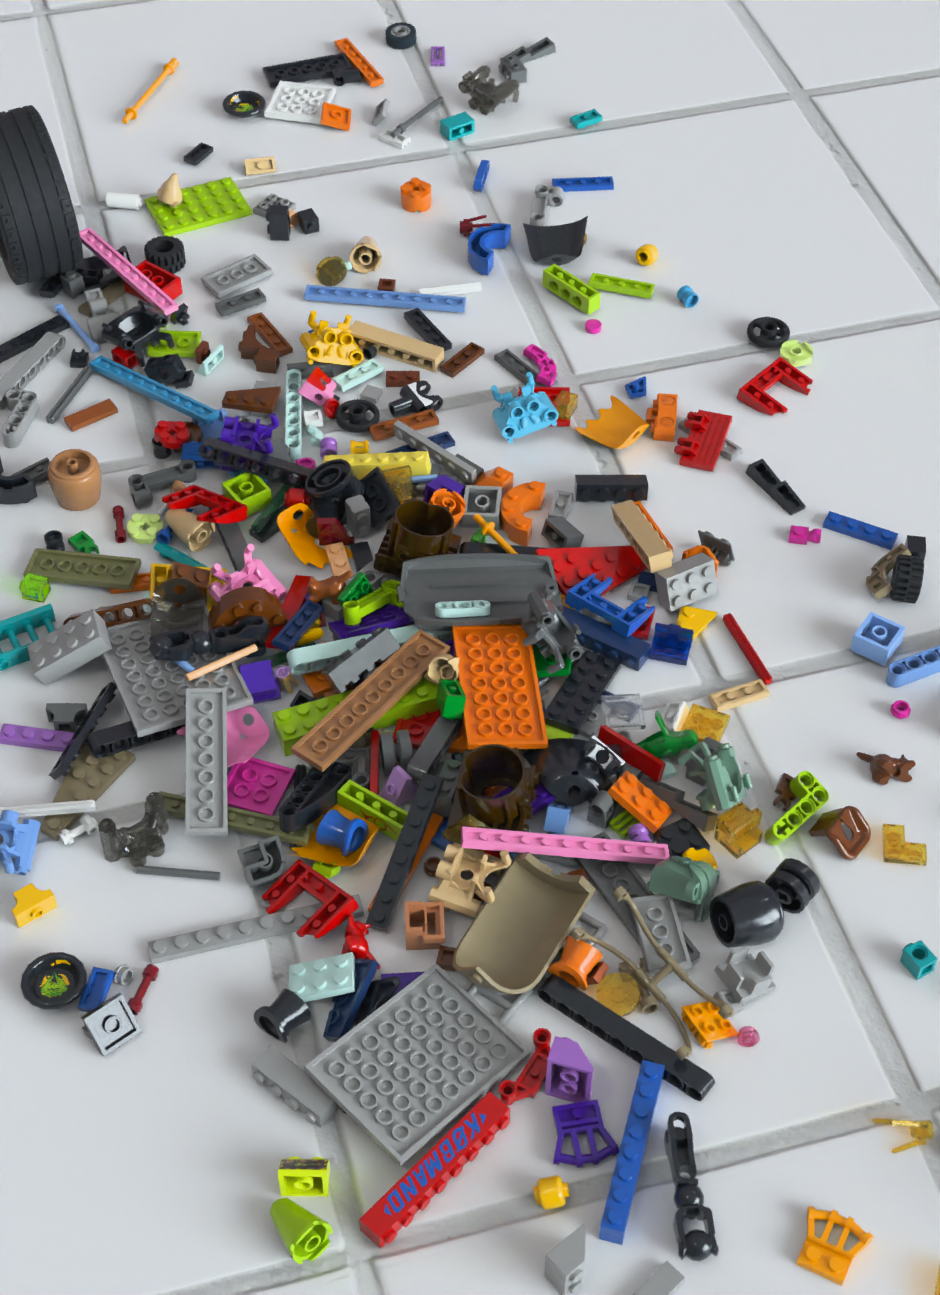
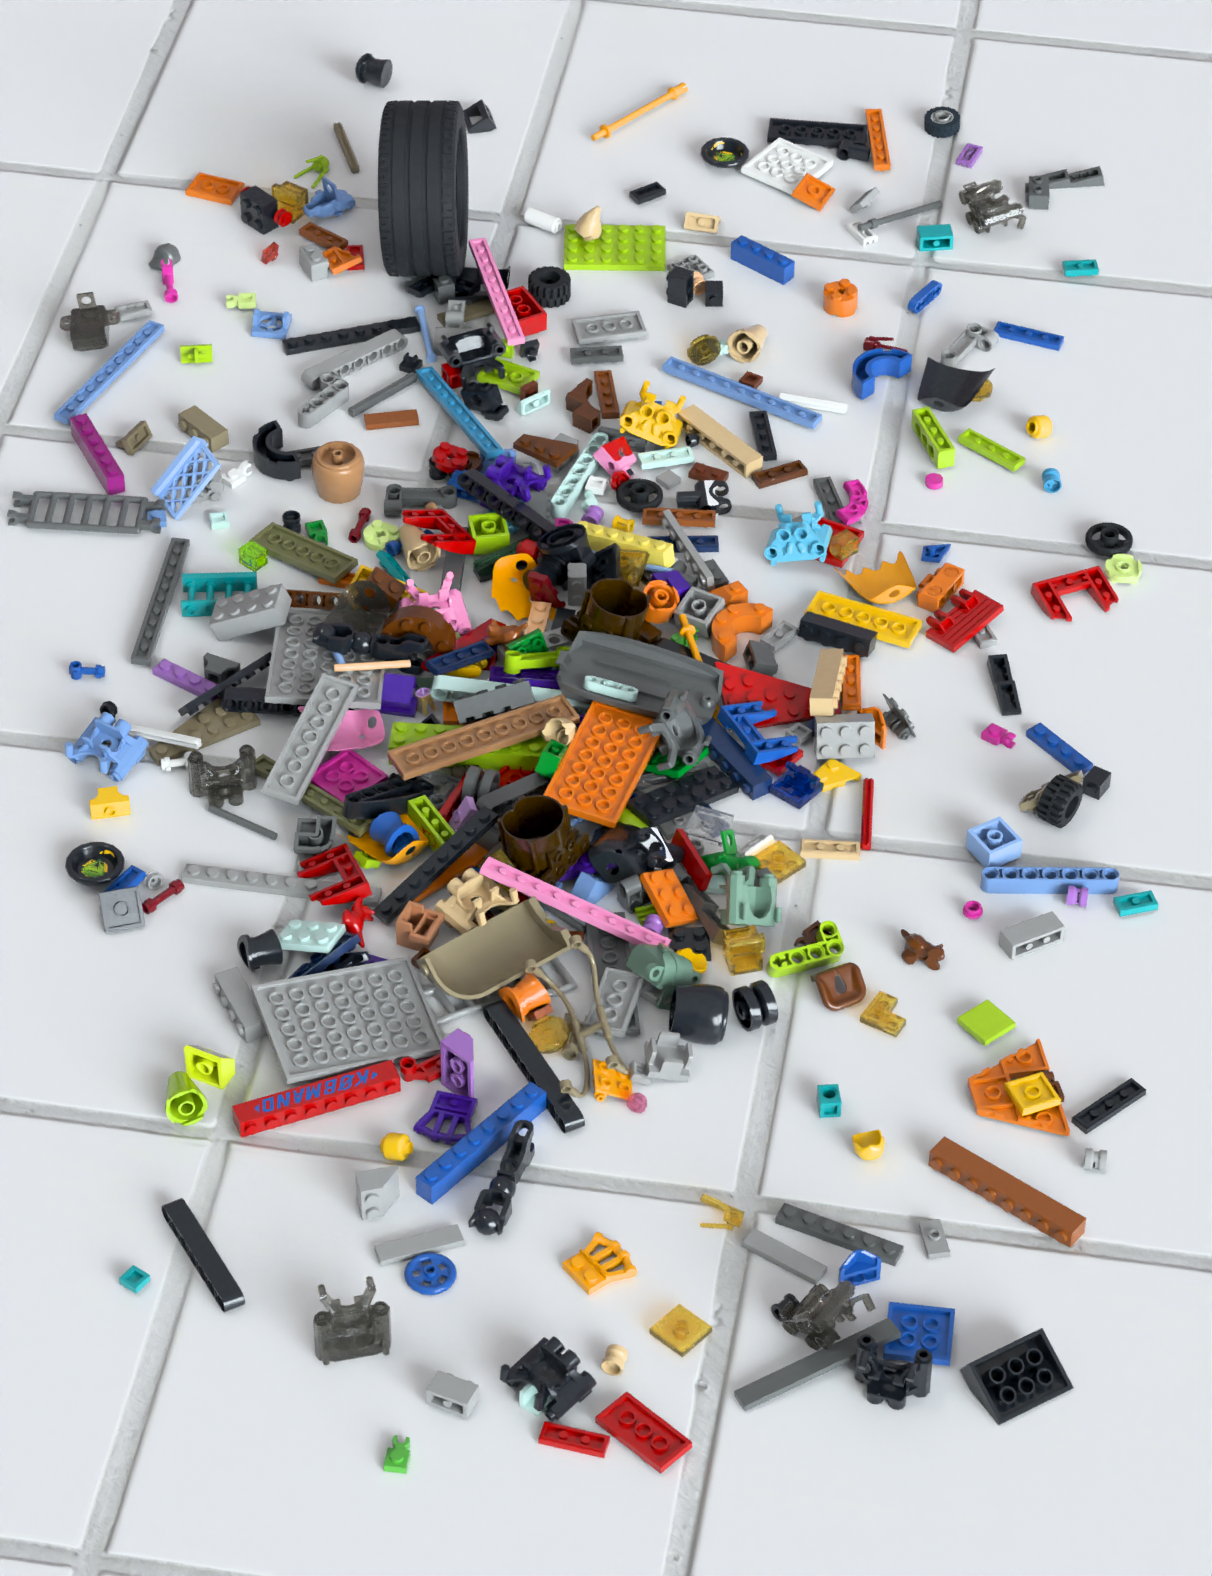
camera: 25 degrees right, 5 degrees down
(331, 182) = (762, 260): none -> blue brick
(655, 465) = (891, 626): none -> yellow plate

